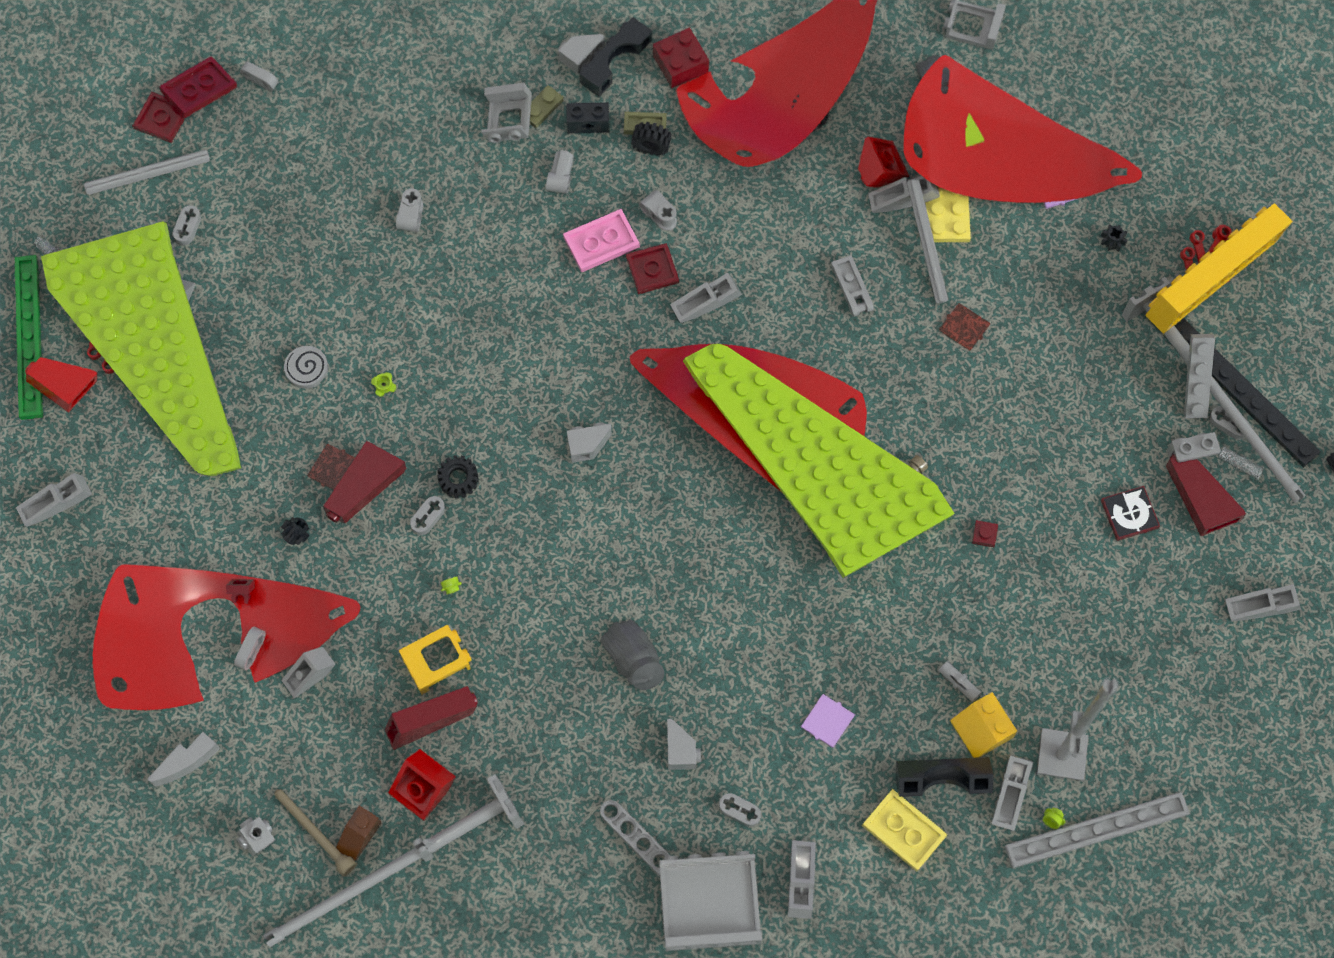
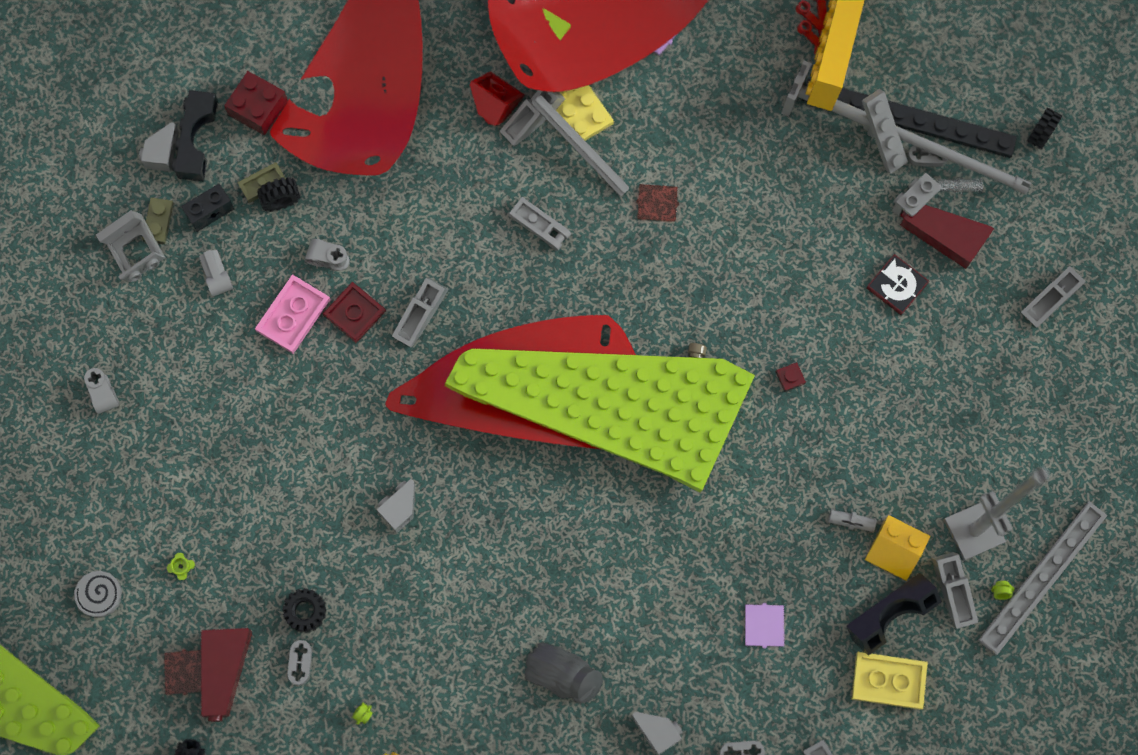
camera: 35 degrees left, 5 degrees up
(1117, 239) = (736, 44): black gear -> none

